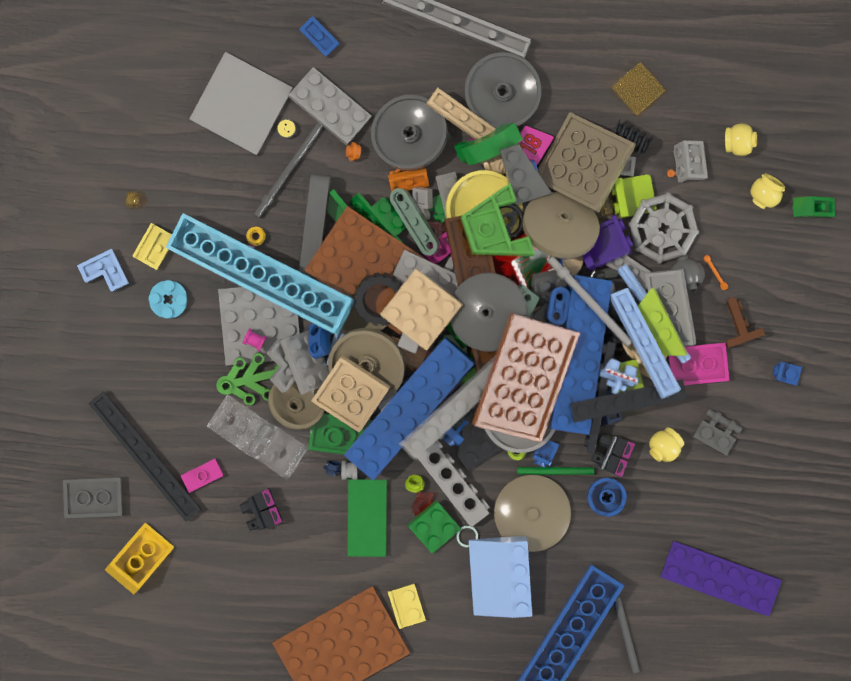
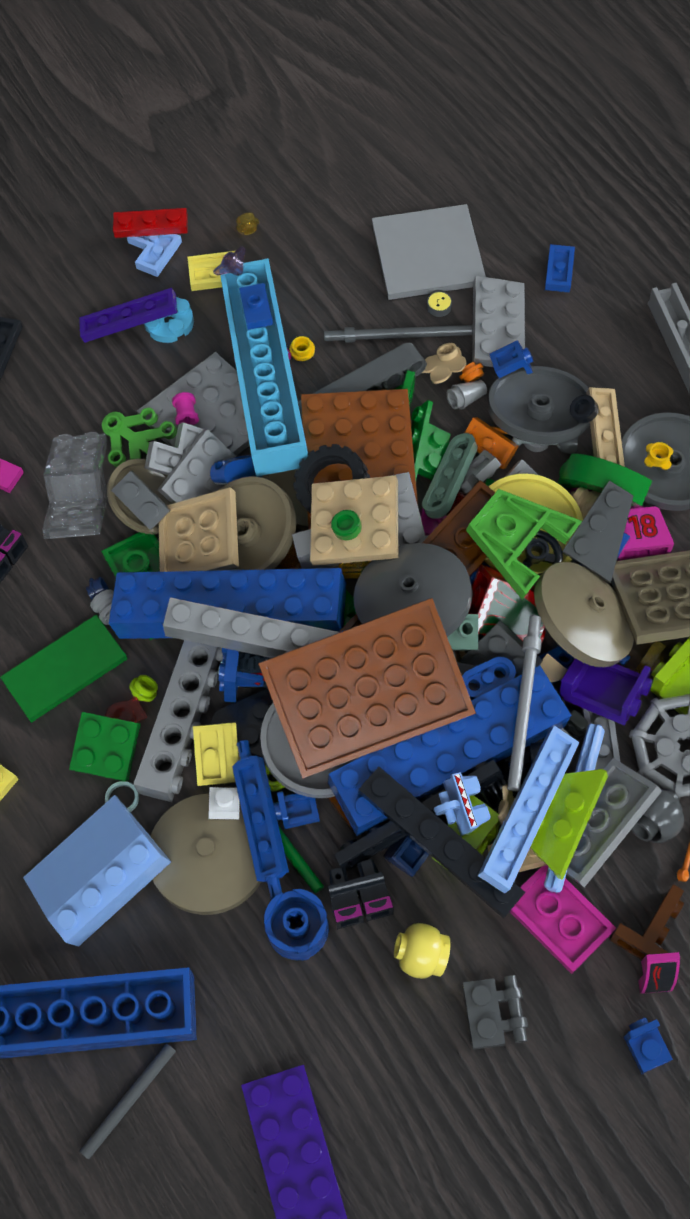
camera: 55 degrees right, 25 degrees down
(88, 261) = (150, 222): none -> red plate
(153, 324) = (128, 315): none -> dark purple plate
(174, 240) = (231, 263): none -> clear purple piece
(221, 250) = (256, 306): none -> blue plate
(304, 409) = (141, 500): none -> dark grey plate
(336, 164) = (447, 360): none -> tan plate
(364, 166) = (465, 393): none -> light grey cone
(368, 126) = (511, 359): none -> blue bracket
(425, 318) = (346, 525): none -> green tile
(438, 117) = (584, 409): none -> black tile
(484, 472) = (215, 753): none -> light yellow plate
(492, 100) = (658, 449): none -> yellow plate
(515, 487) = (223, 803): none -> white plate
(539, 475) = (260, 819): none -> blue plate
(762, 342) = (659, 972): none -> slope

